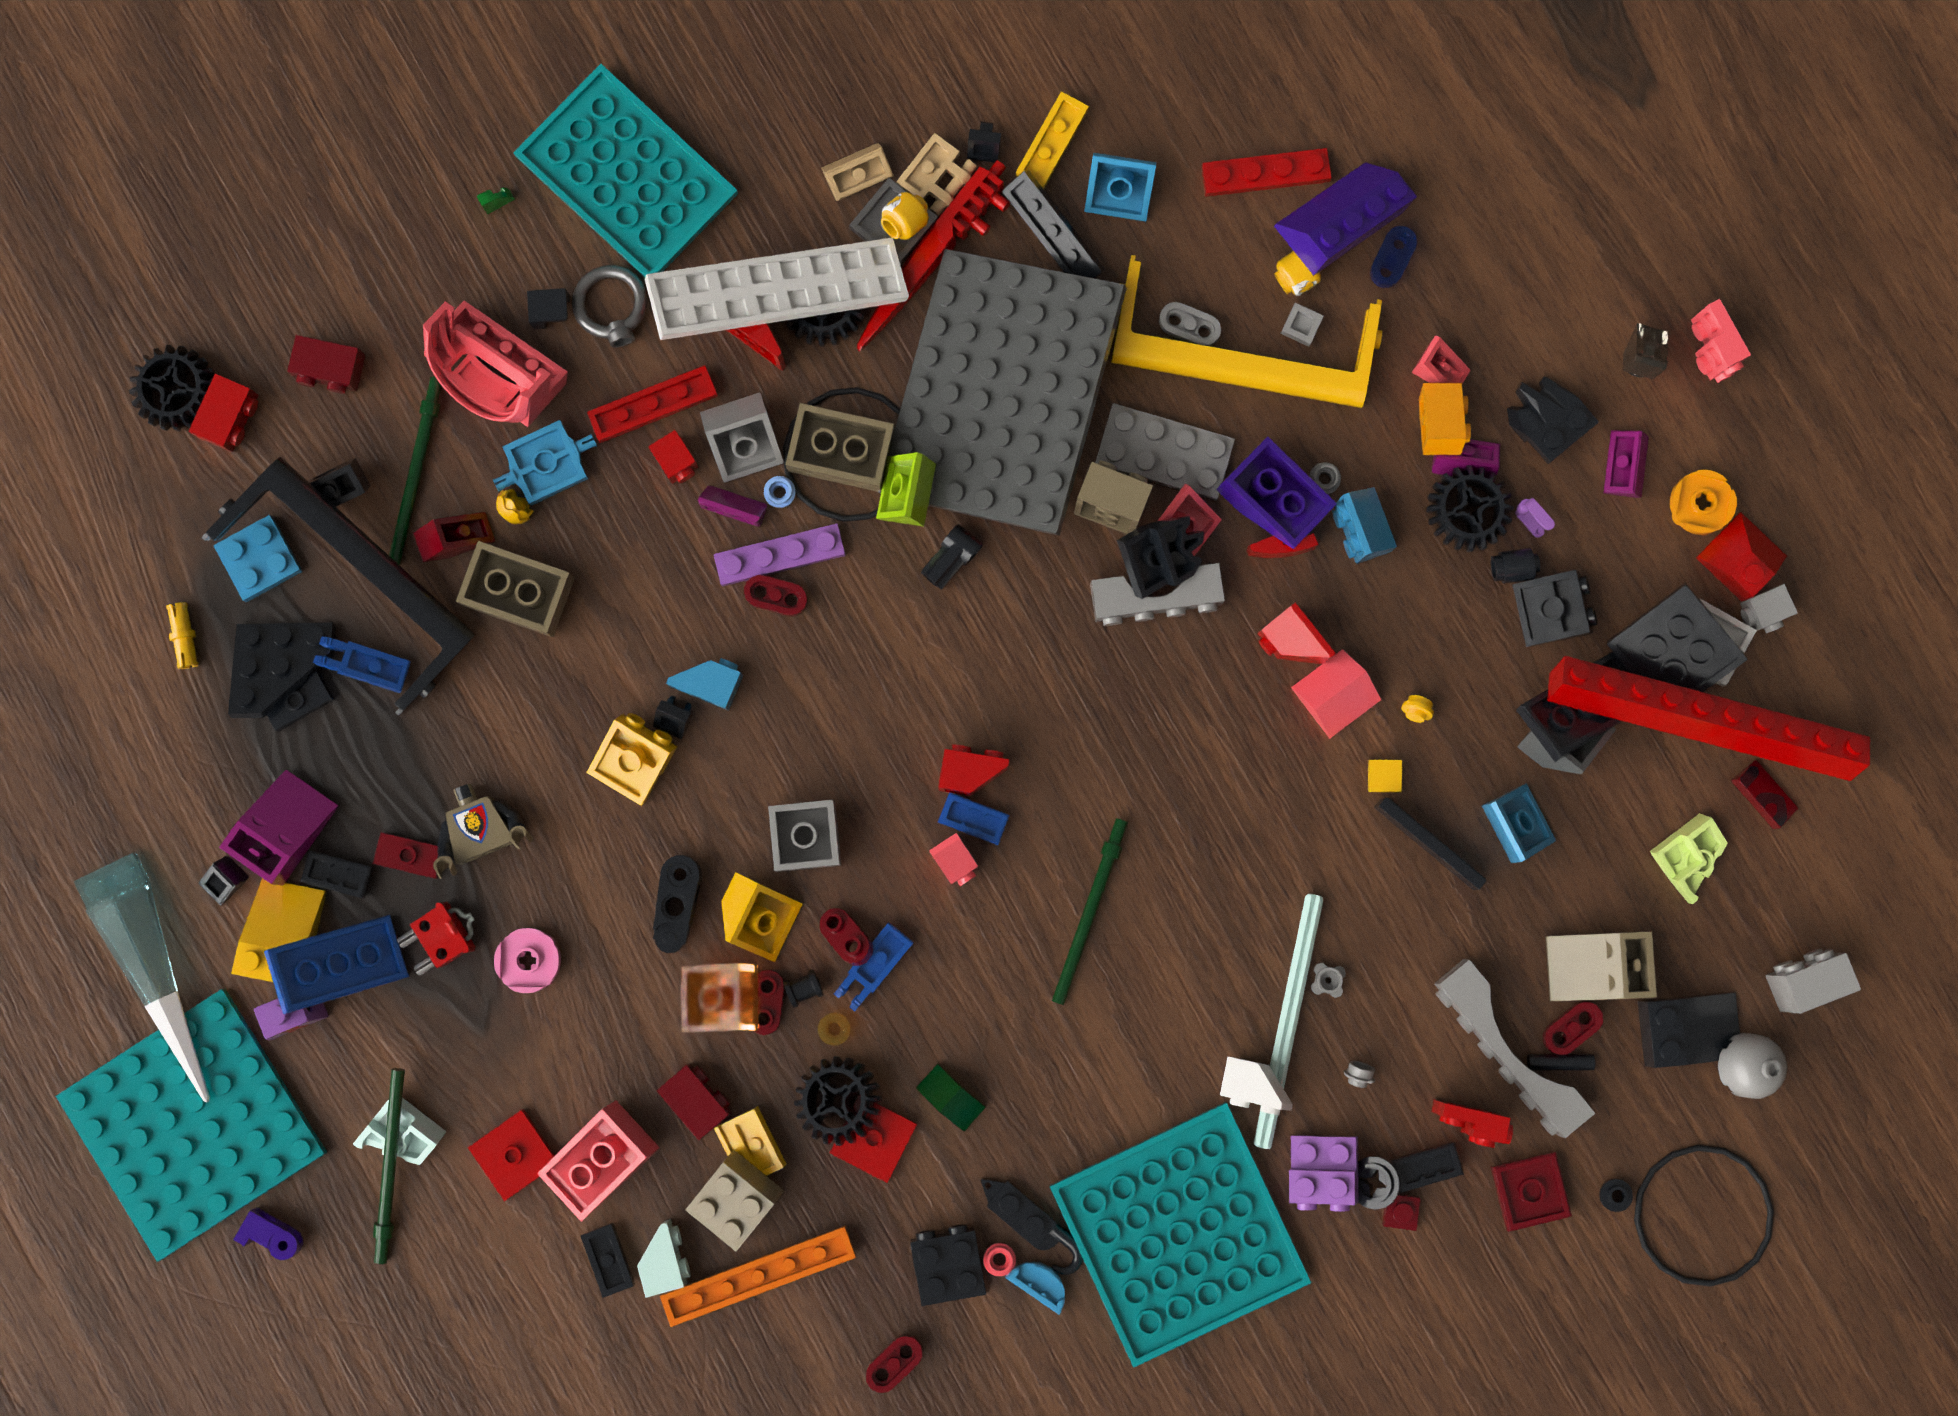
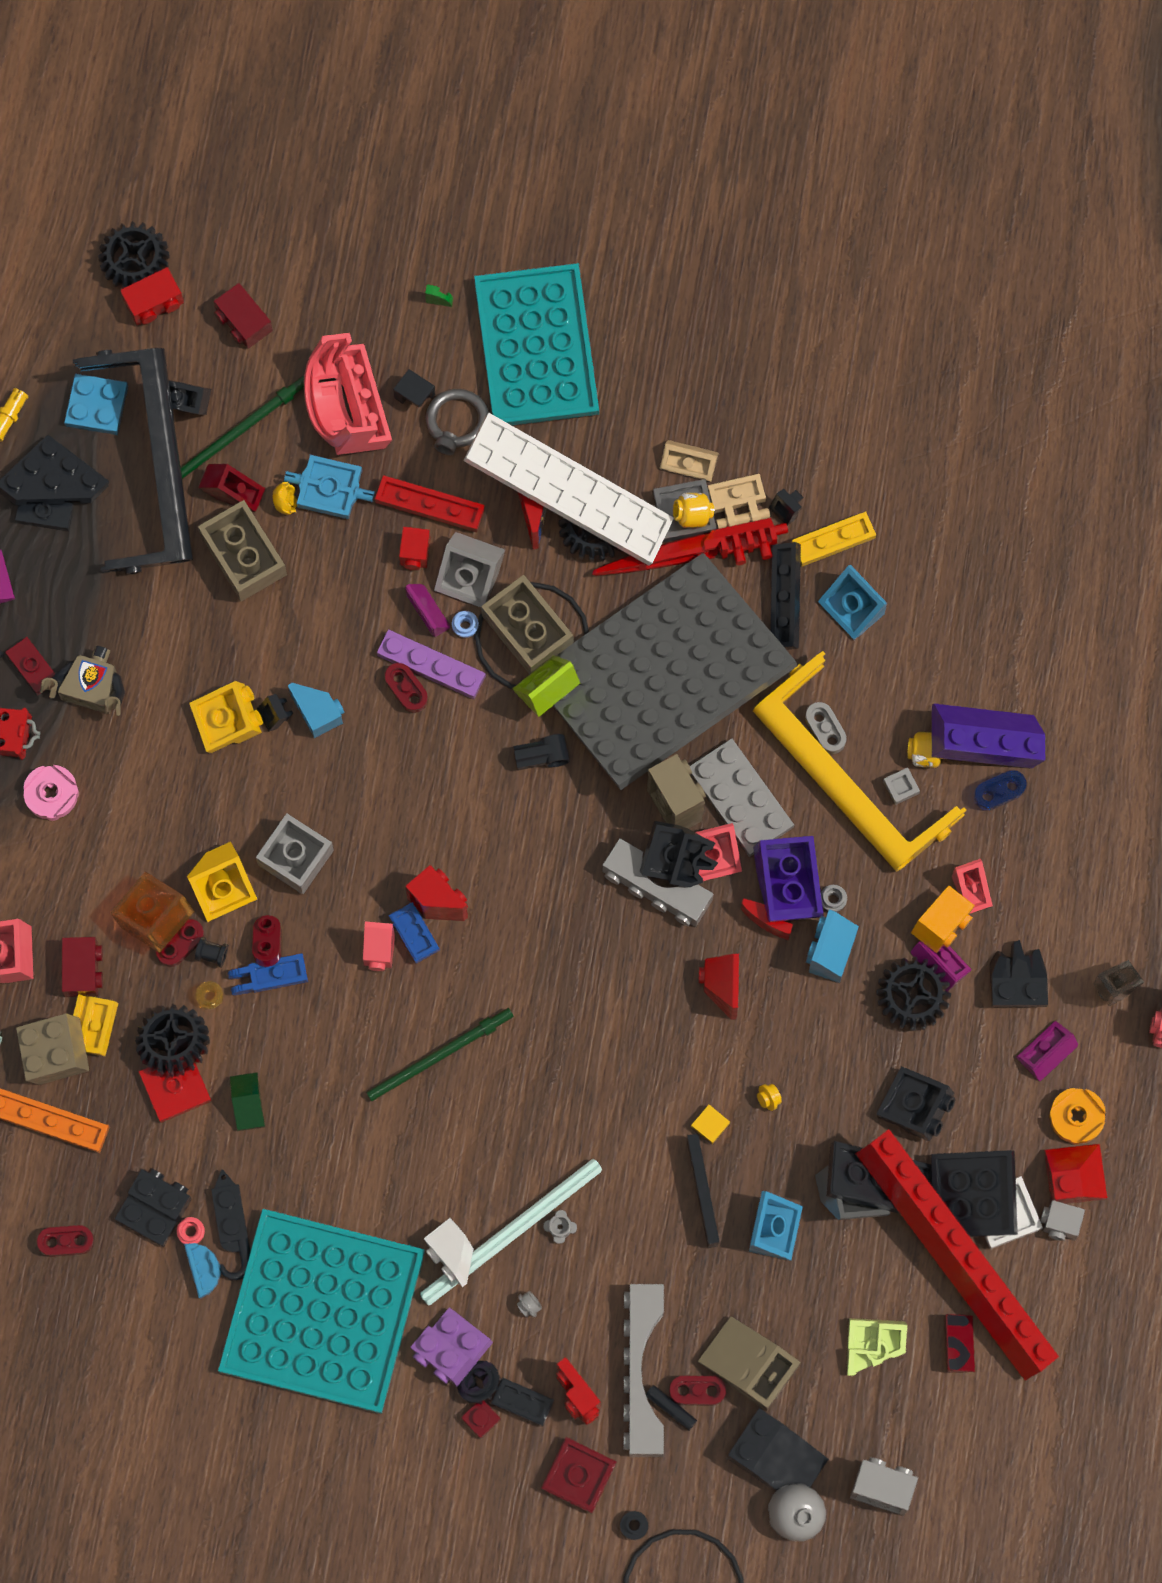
camera: 40 degrees right, 10 degrees down
(365, 664) = (107, 522): blue hinge -> none
(669, 930) = (158, 847): black piece -> none
(1266, 172) = (961, 670): red plate -> none
(1337, 693) = (723, 1045): coral slope -> none
(1515, 565) = (913, 1055): black brick -> none
(1534, 517) = (951, 1032): medium lavender piece -> none

